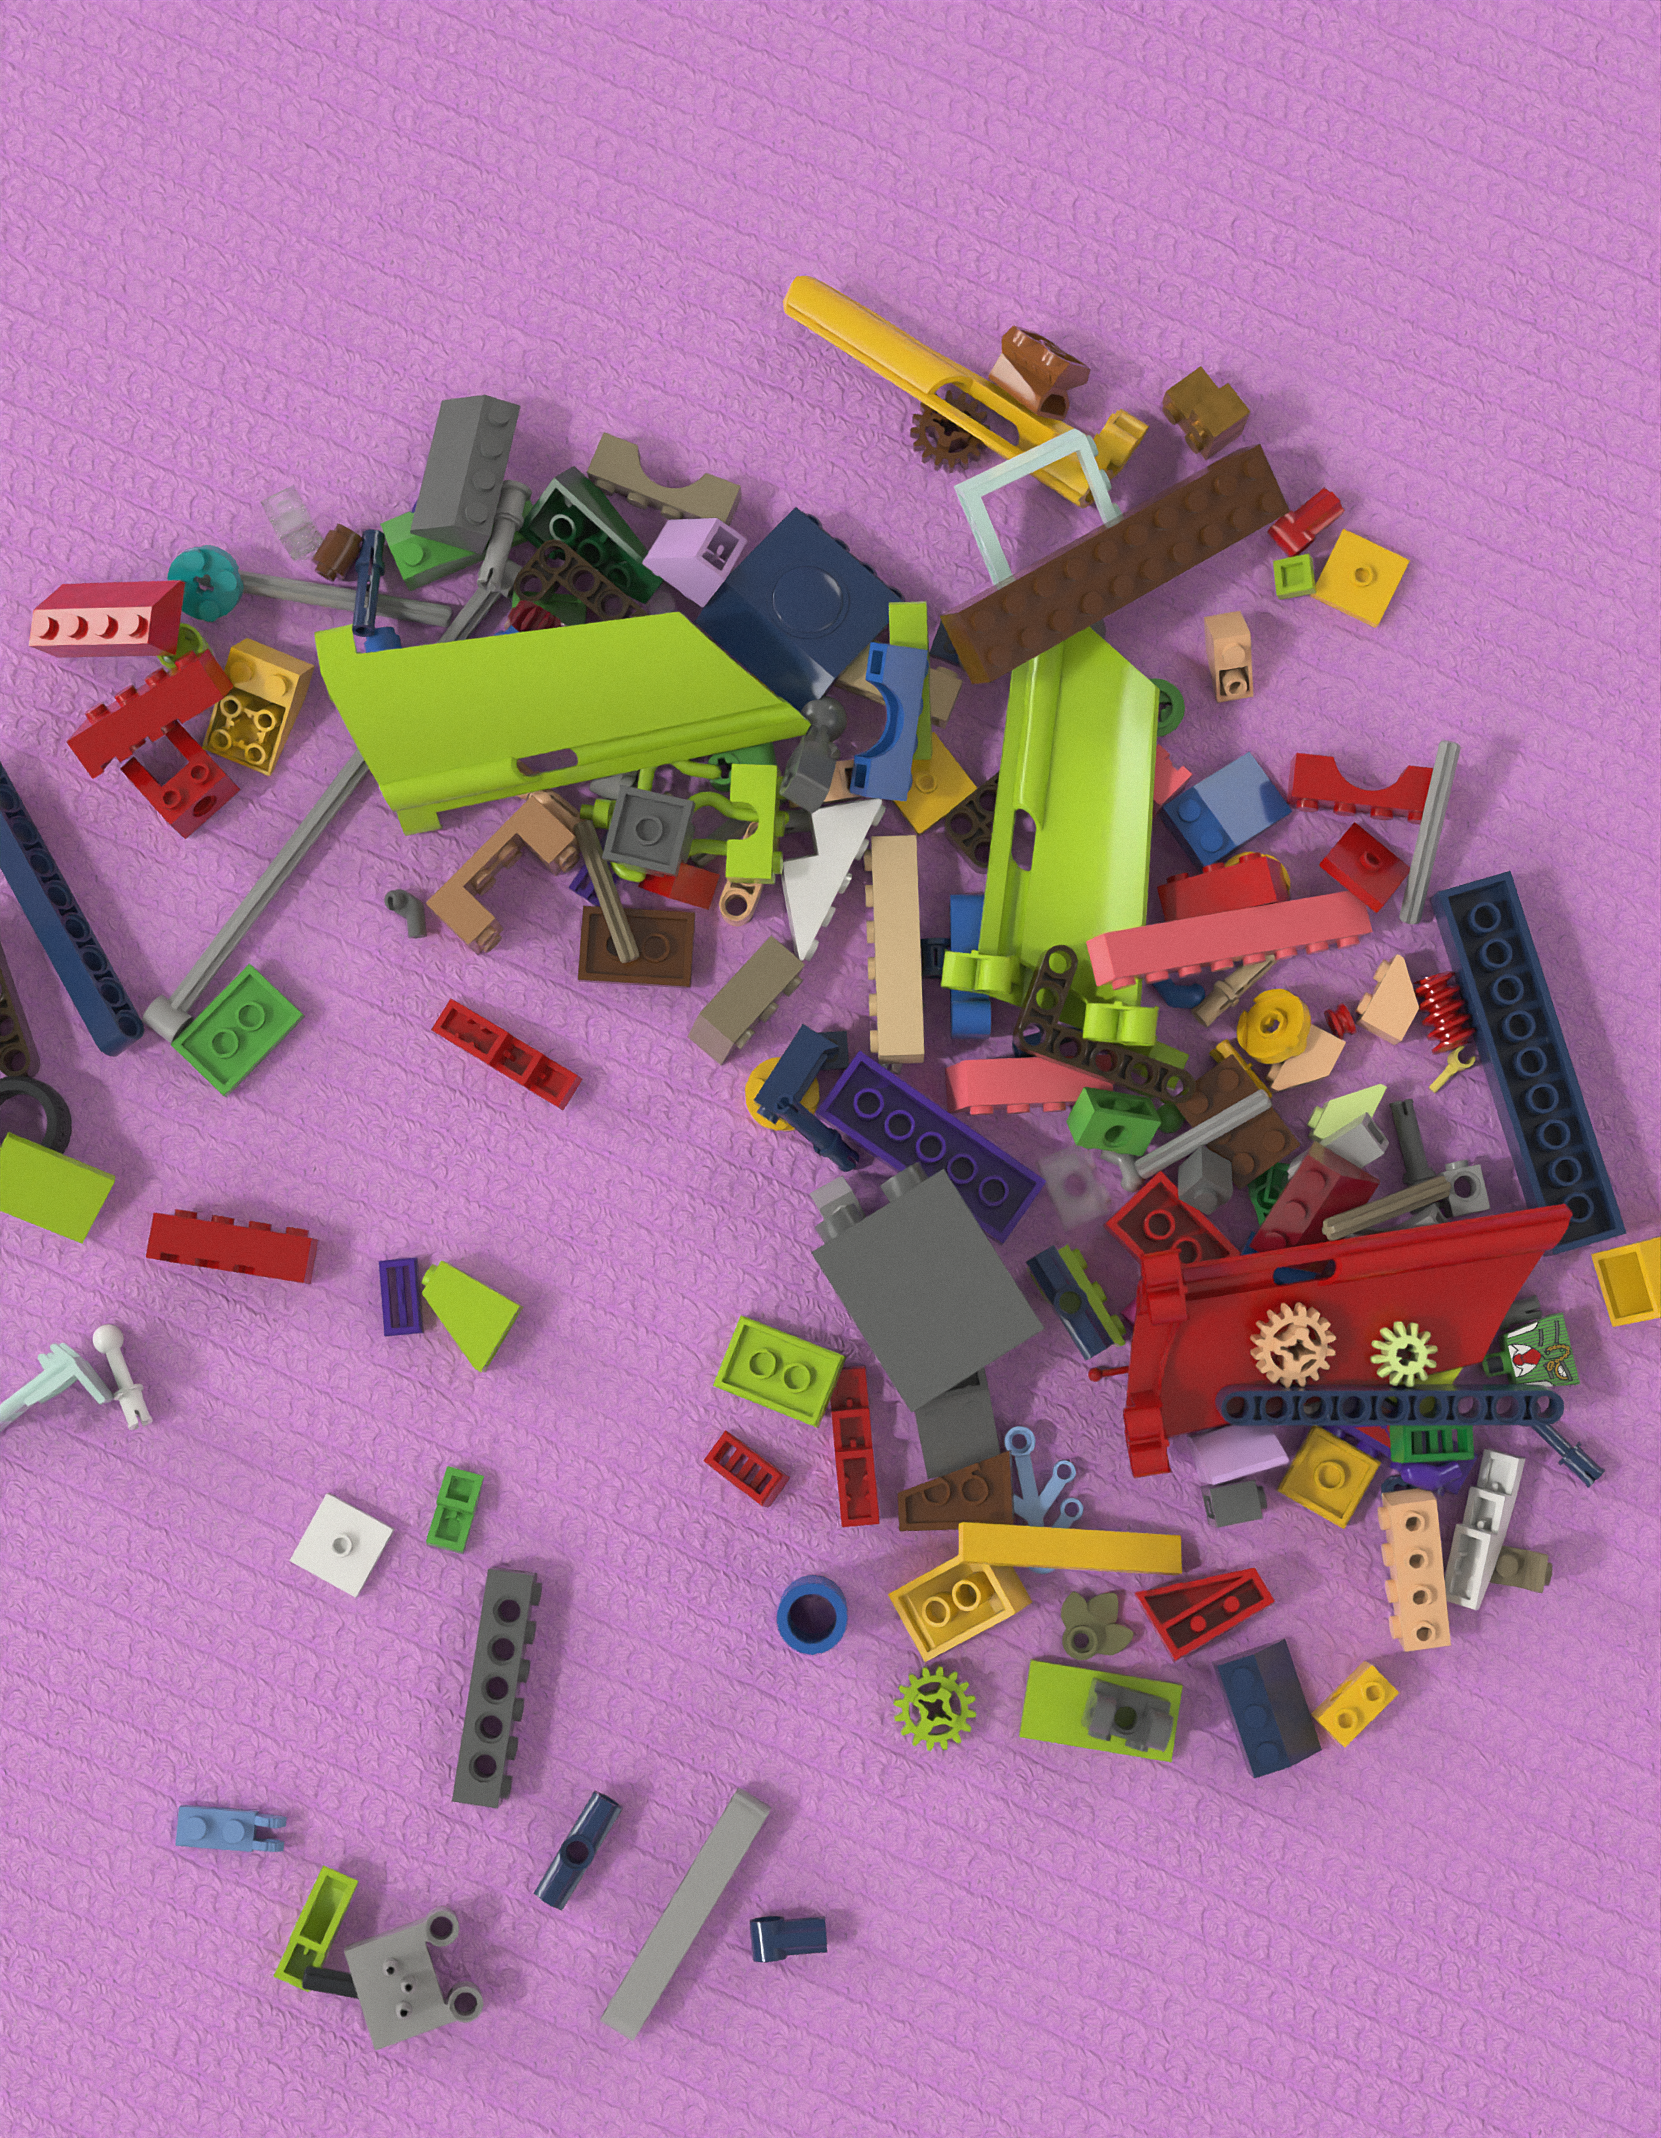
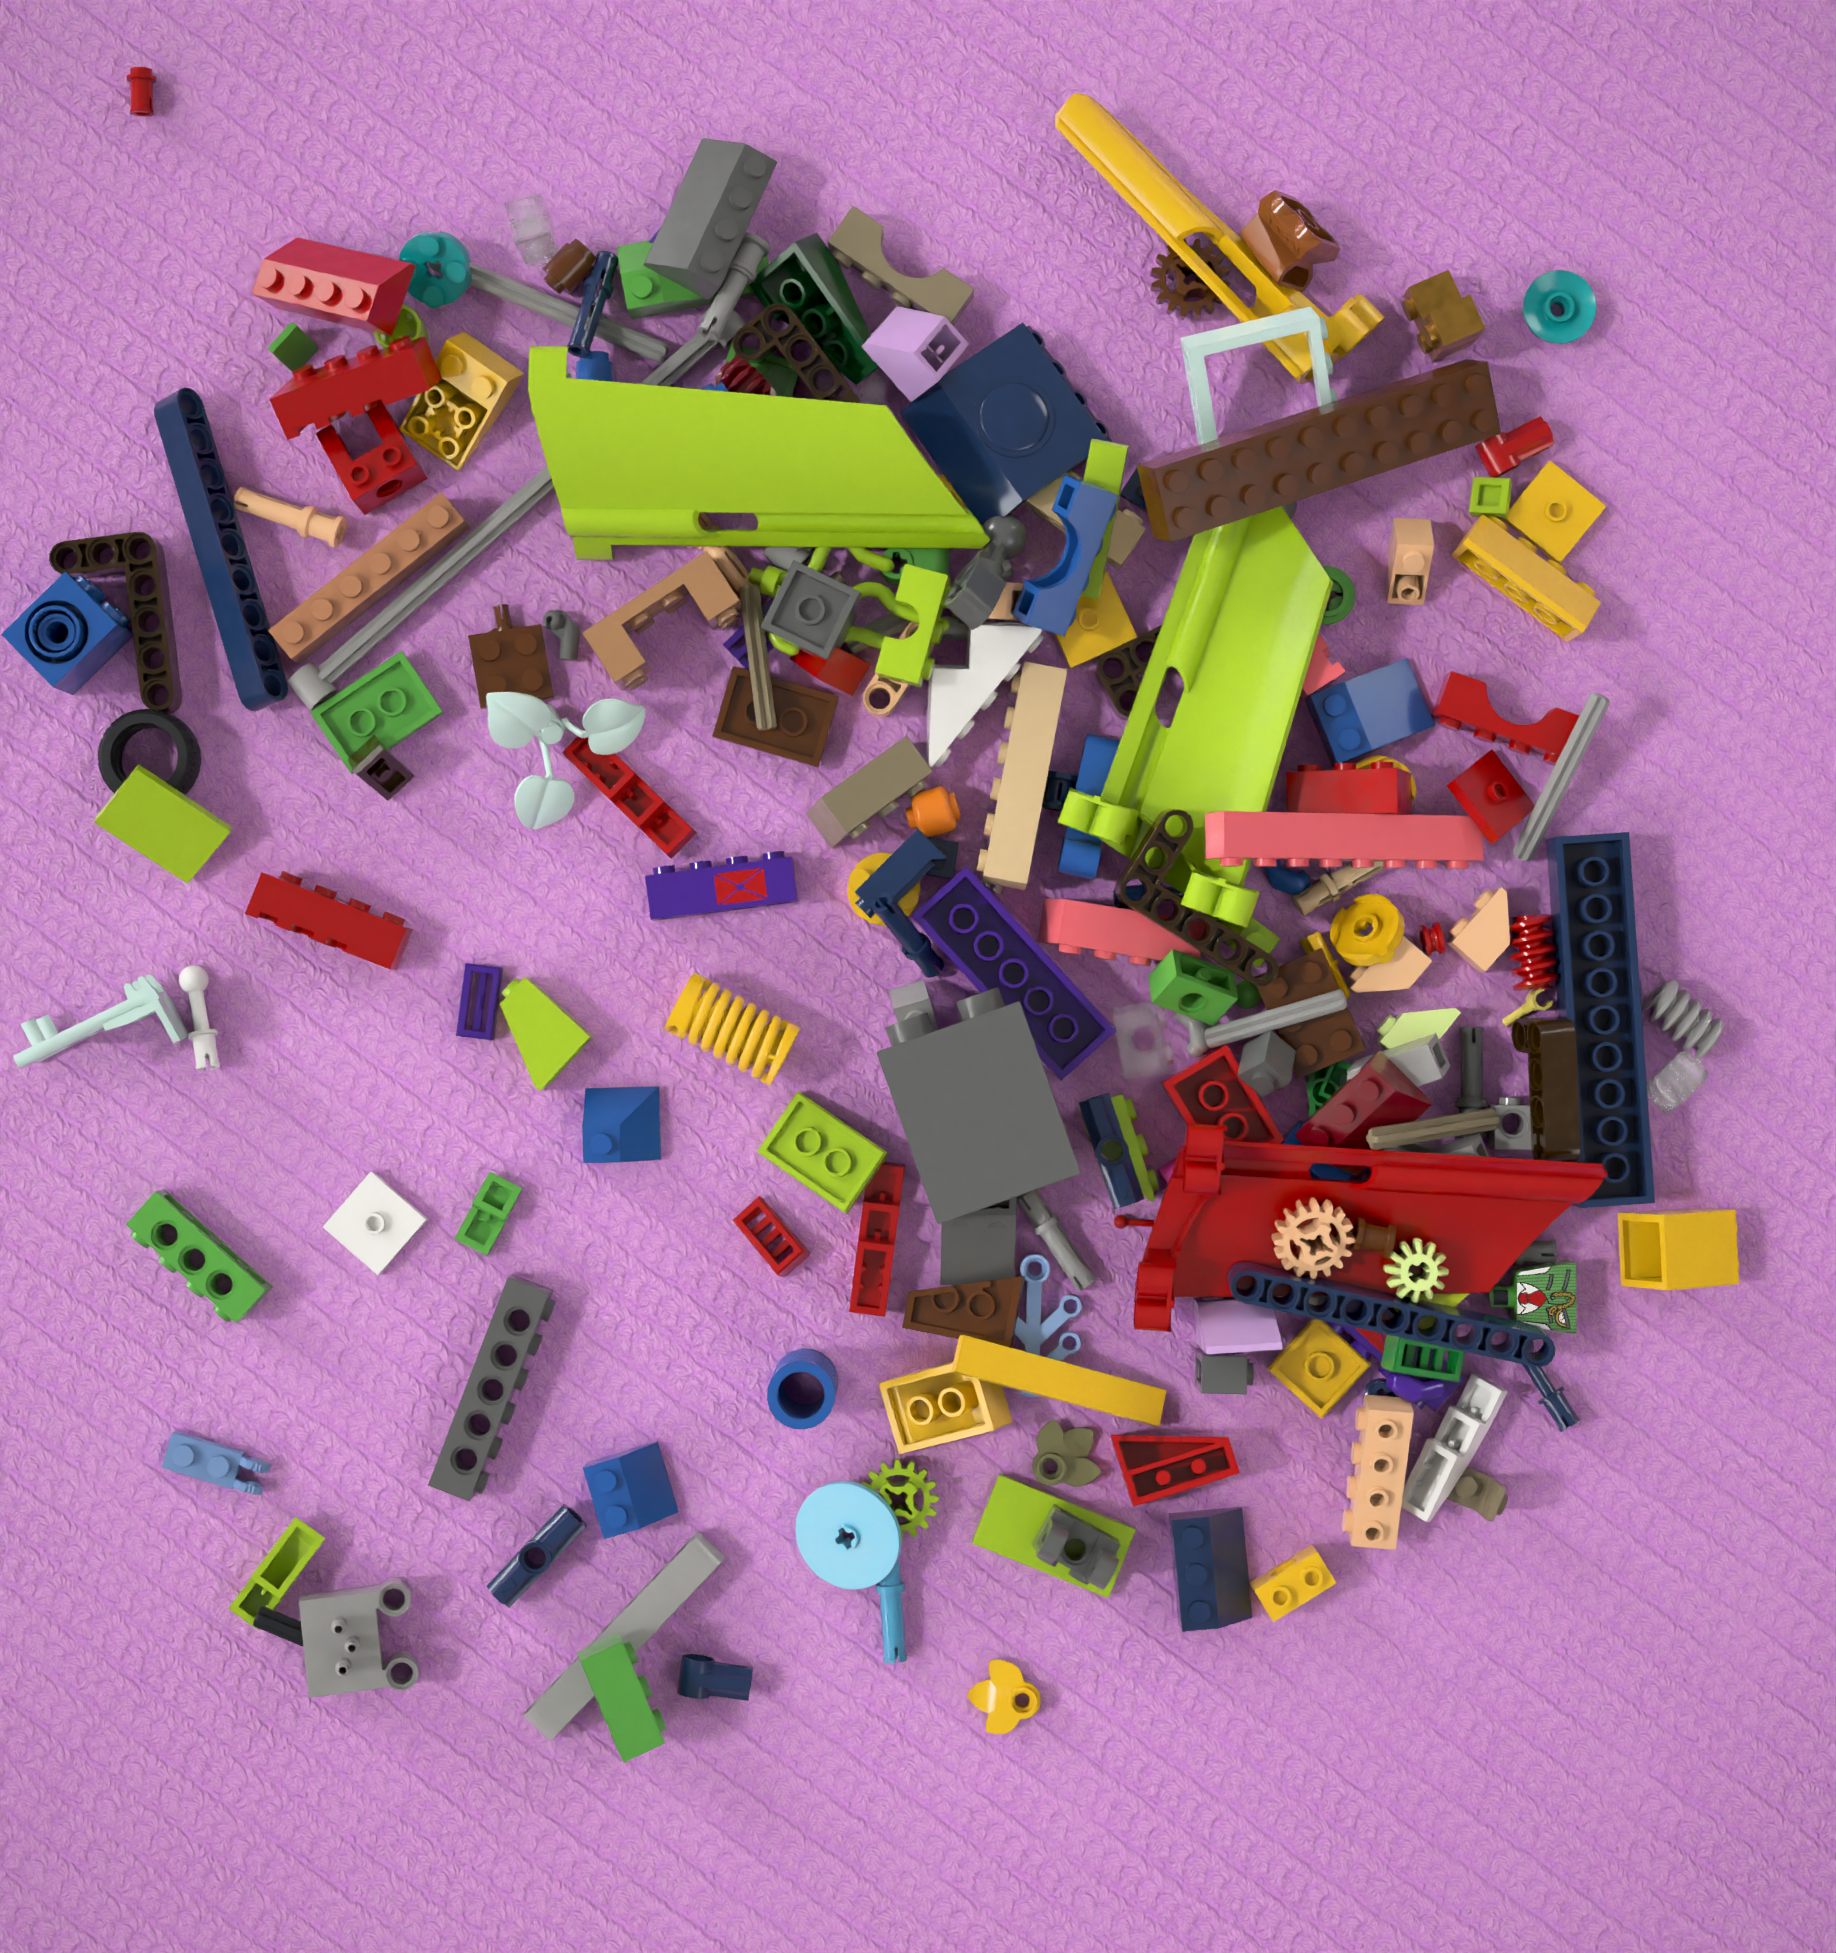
camera: 10 degrees right, 5 degrees up
(80, 690) = (293, 347): none -> bright green slope
(128, 857) = (305, 520): none -> light nougat pin
(203, 899) = (369, 578): none -> nougat brick
(225, 1637) = (247, 1286): none -> bright green brick
(252, 1084) = (380, 768): none -> slope
(362, 956) = (510, 659): none -> reddish brown plate
(380, 997) = (519, 716): none -> light aqua plant
(570, 1389) = (621, 1124): none -> blue slope
(619, 1128) = (722, 887): none -> dark purple brick
(659, 1760) = (630, 1489): none -> blue slope
(660, 1275) = (731, 1034): none -> yellow piece
(697, 1976) = (622, 1697): none -> bright green wedge
(815, 1005) = (933, 811): none -> orange head
(892, 1728) = (853, 1509): none -> medium azure piece
(947, 1802) = (892, 1616): none -> dark azure pin
(1027, 1400) = (1051, 1232): none -> light grey pin
(1082, 1889) = (998, 1697): none -> yellow plate
(1320, 363) = (1568, 292): none -> teal dish
(1348, 646) = (1527, 578): none -> yellow slope
(1353, 1330) = (1373, 1237): none -> reddish brown bush
(1494, 1138) = (1551, 1086): none -> dark brown beam
(1610, 1043) = (1685, 1017): none -> light grey piece
(1617, 1108) = (1675, 1081): none -> clear gear

